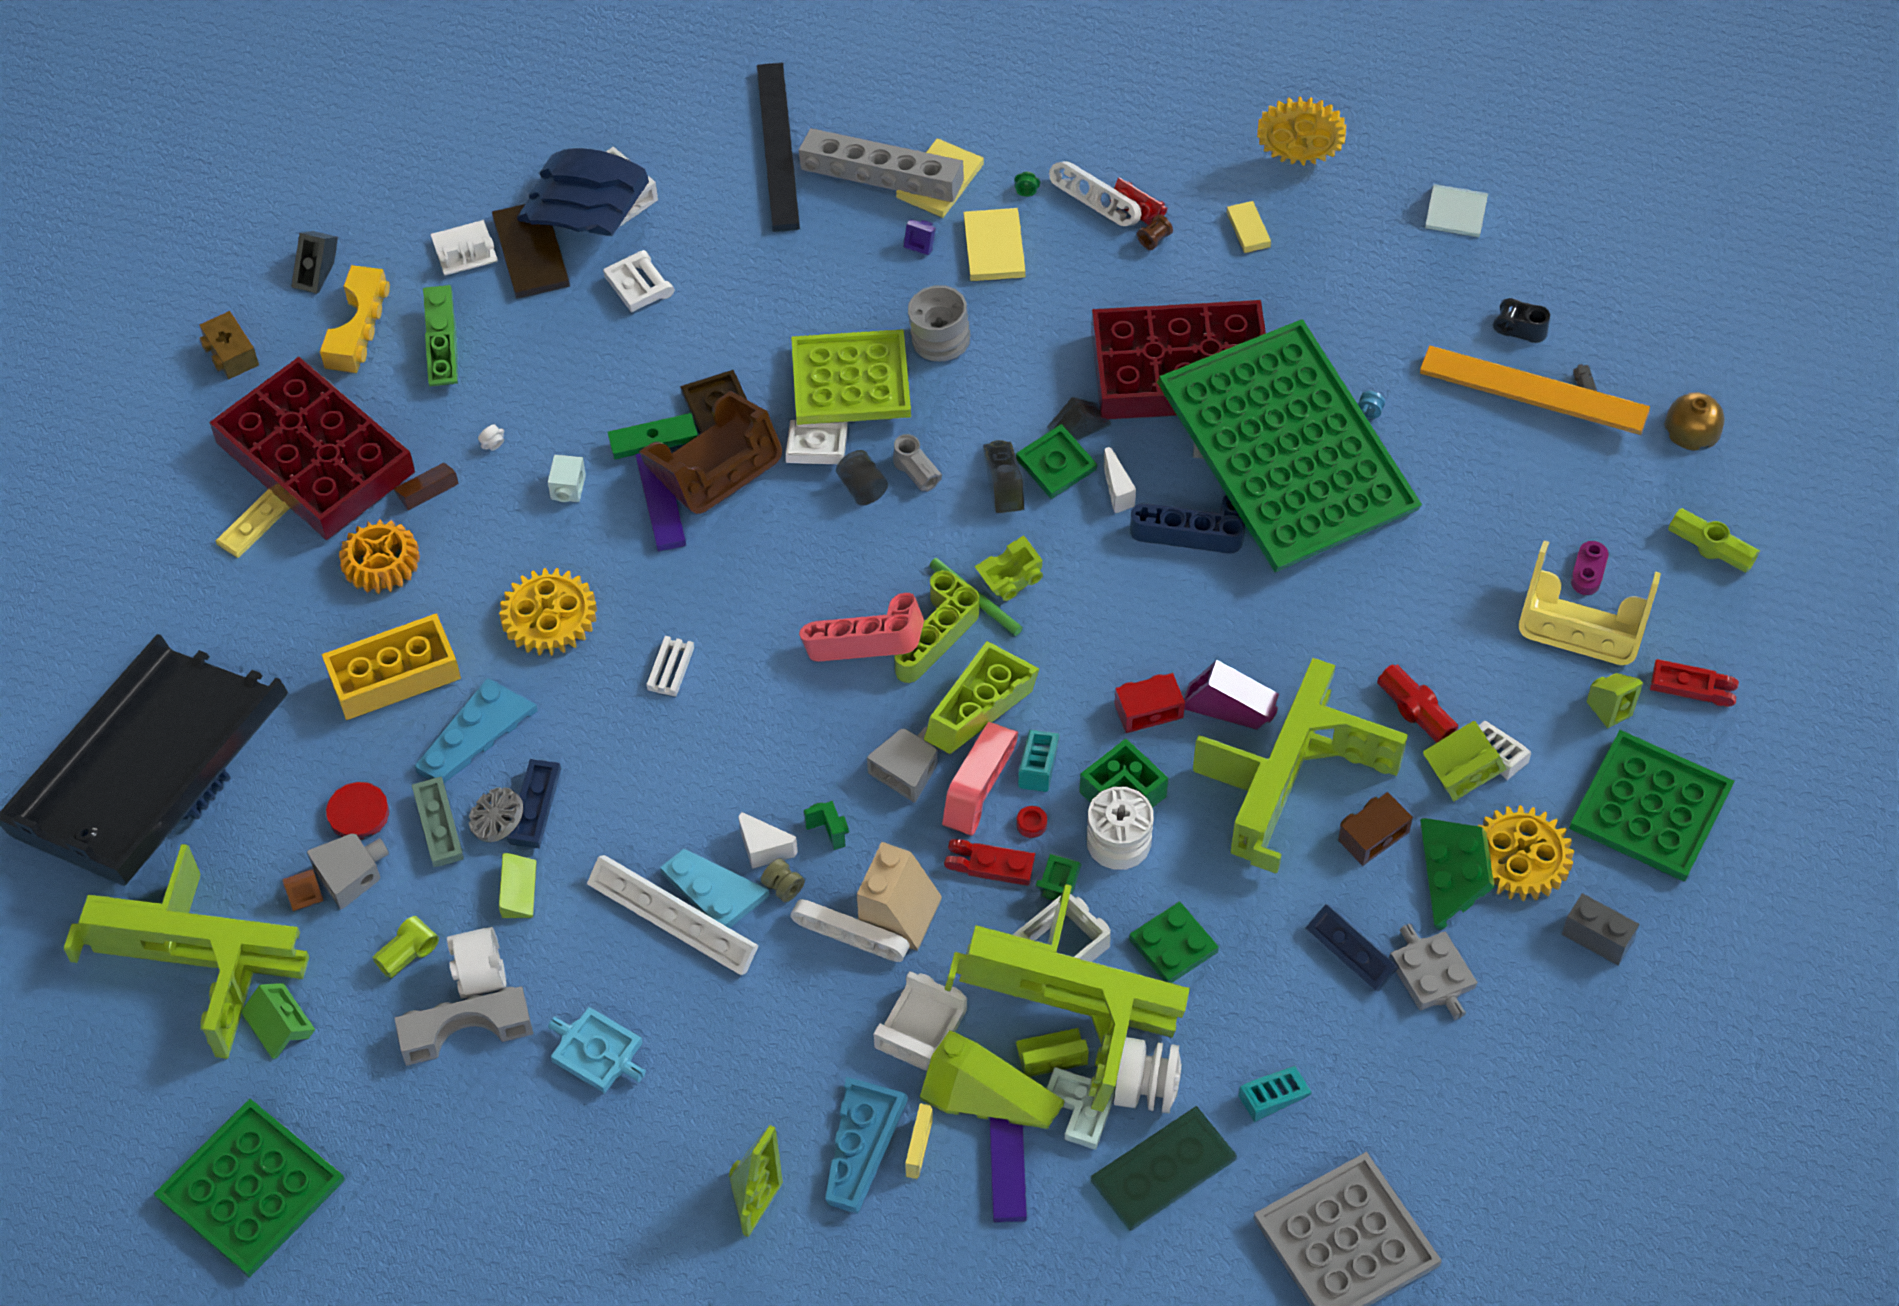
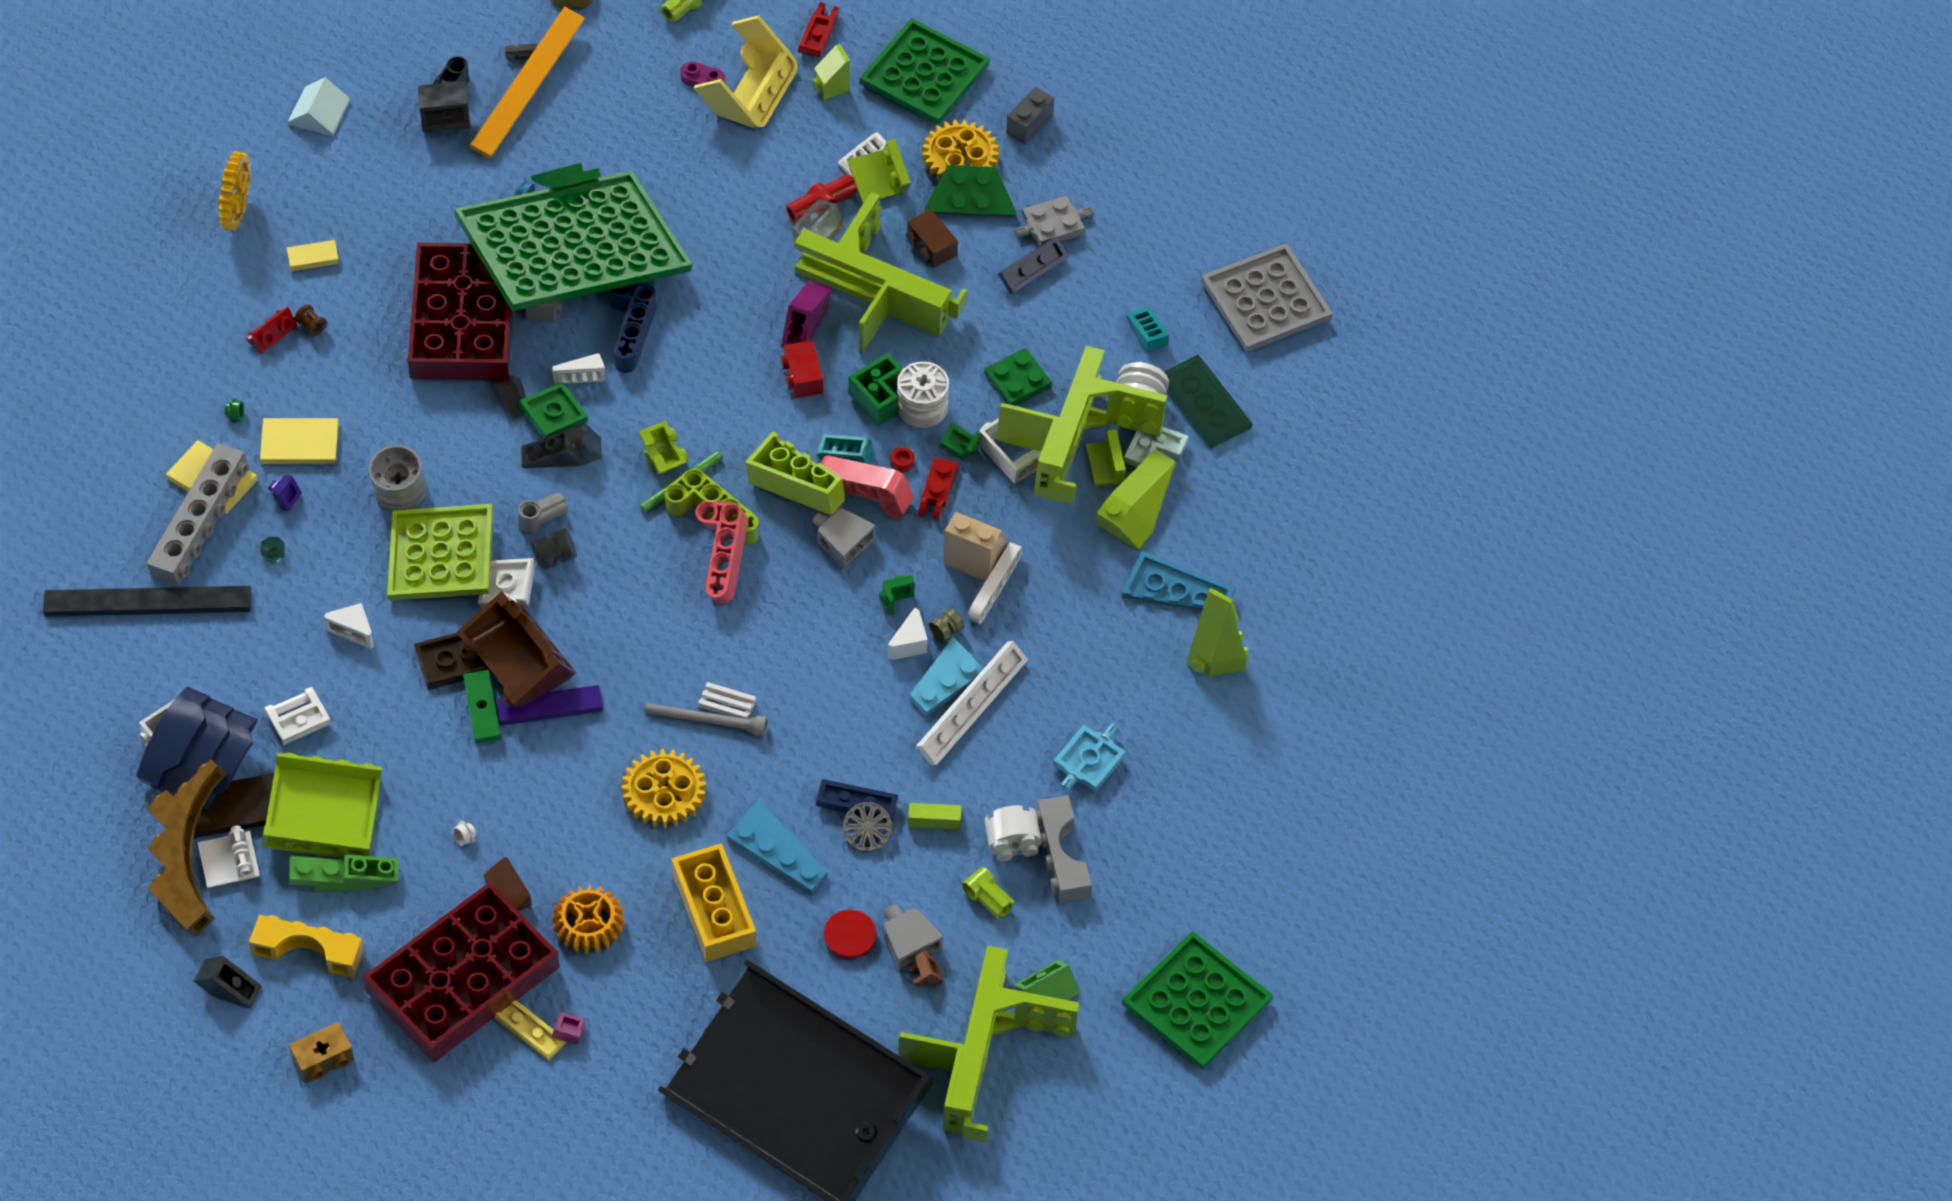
camera: 90 degrees left, 0 degrees up
(247, 553) = (568, 1028): none -> magenta tile
(437, 822) = (868, 871): sand green plate -> none
(461, 192) = (173, 847): none -> pearl gold arch
(517, 313) = (322, 806): none -> lime panel
(566, 478) = (522, 772): light aqua brick -> none
(635, 696) = (754, 725): none -> light grey piece
(751, 314) = (350, 624): none -> white slope
(848, 236) = (272, 549): none -> clear green tile
(919, 1141) = (1179, 547): light yellow tile -> none
(920, 1020) = (1077, 542): white panel -> none
(1007, 1171) = (1203, 497): dark purple tile -> none
(1093, 197) = (260, 362): white beam -> none
(1364, 695) = (820, 219): none -> clear brick
(1391, 434) = (565, 176): none -> green slope
(1470, 310) = (444, 107): none -> black slope

